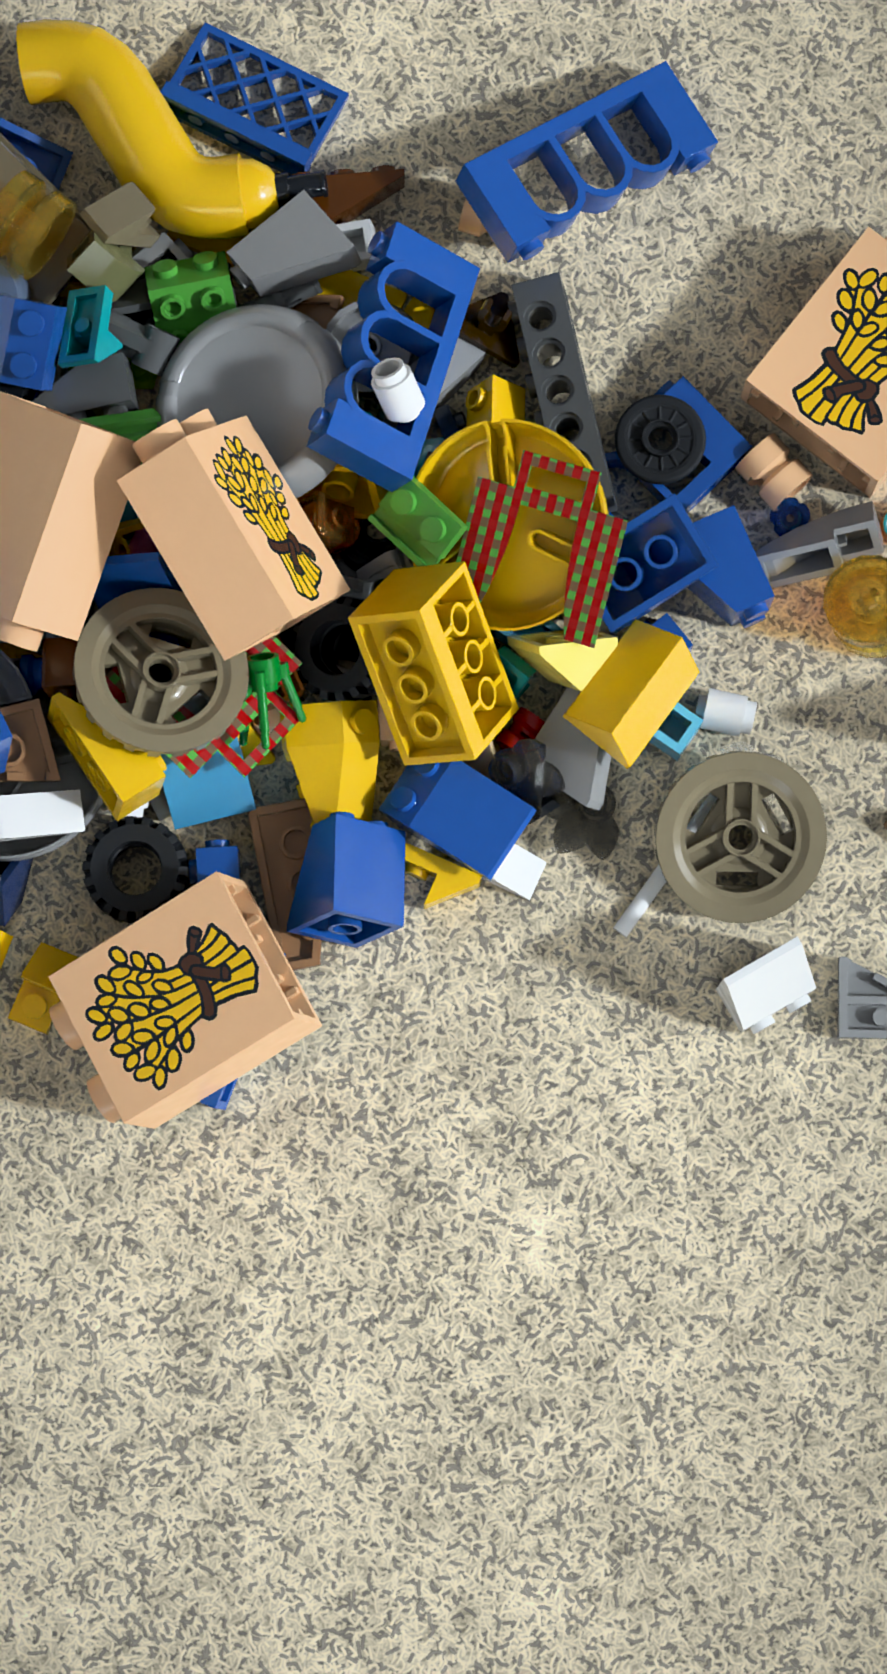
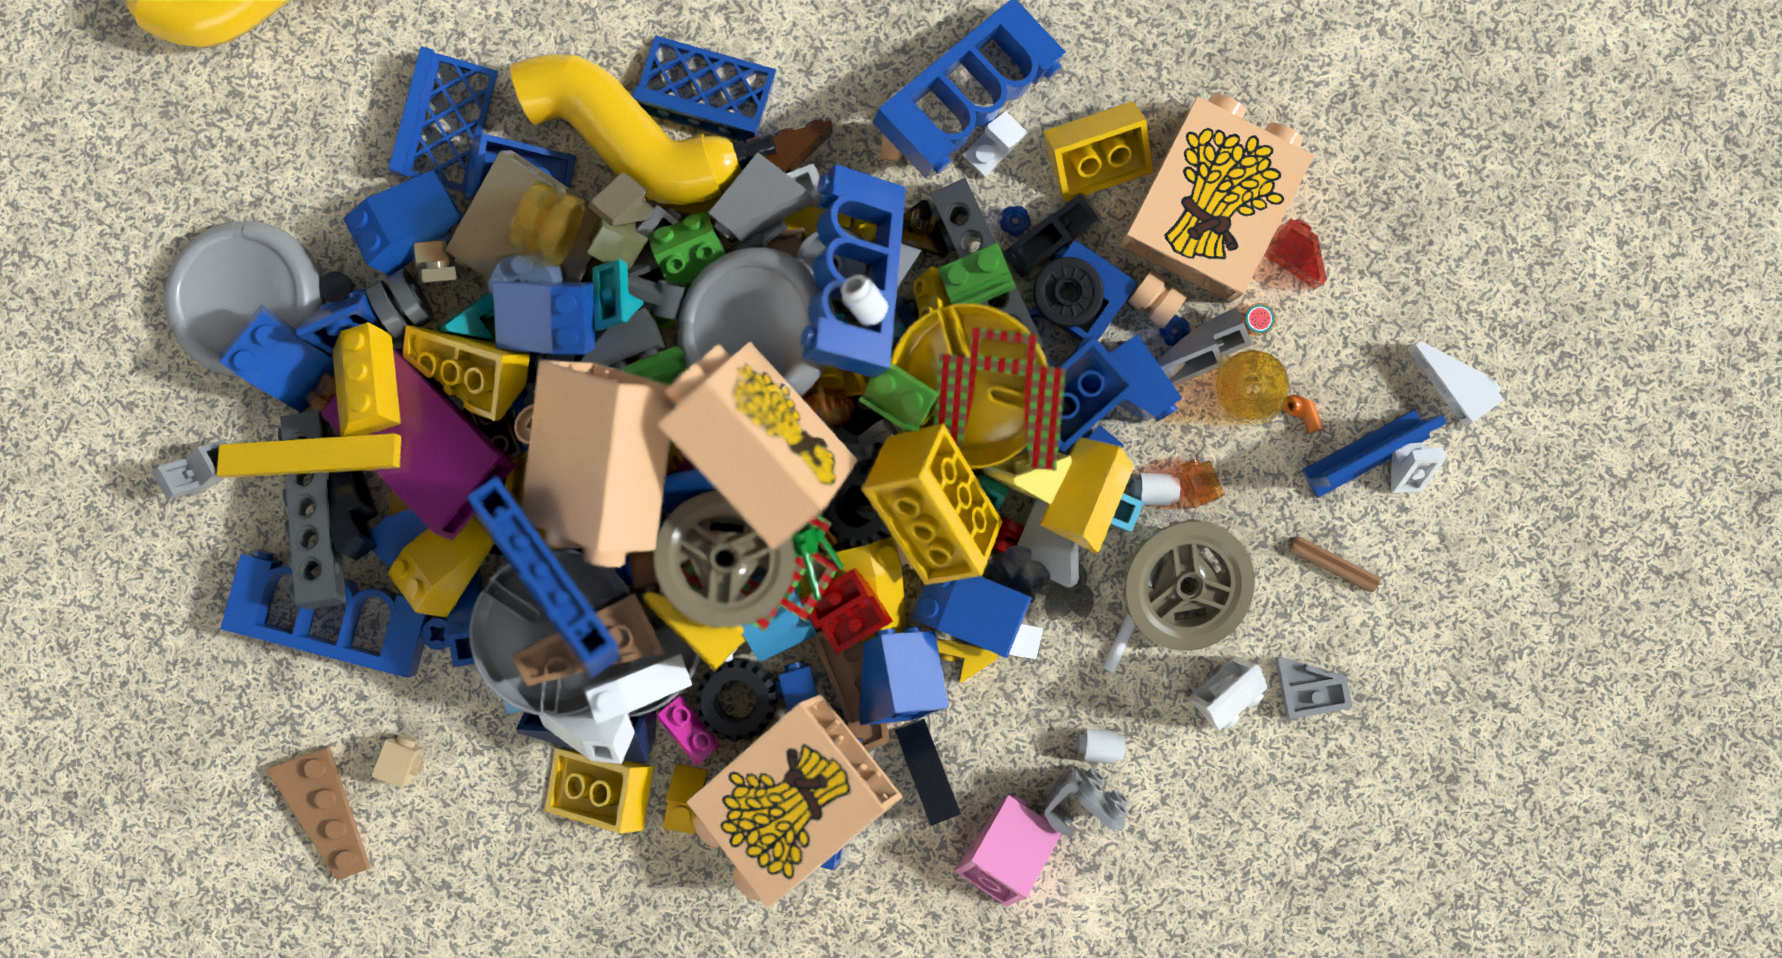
camera: 15 degrees left, 5 degrees up
(66, 897) = (688, 731): none -> dark pink bracket
(300, 781) = (848, 611): none -> red slope
(361, 1013) = (927, 772): none -> black slope
(443, 1133) = (1009, 851): none -> bright pink slope
(548, 395) = (977, 276): none -> bright green plate
(563, 1073) = (1087, 788): none -> light grey piece
(590, 1024) = (1101, 746): none -> white brick
(608, 240) = (994, 144): none -> white slope
(614, 330) = (1019, 213): none -> clear blue plate
(654, 365) = (1052, 234): none -> black slope
(737, 274) = (1099, 150): none -> yellow slope
(792, 730) = (1210, 488): none -> clear orange brick

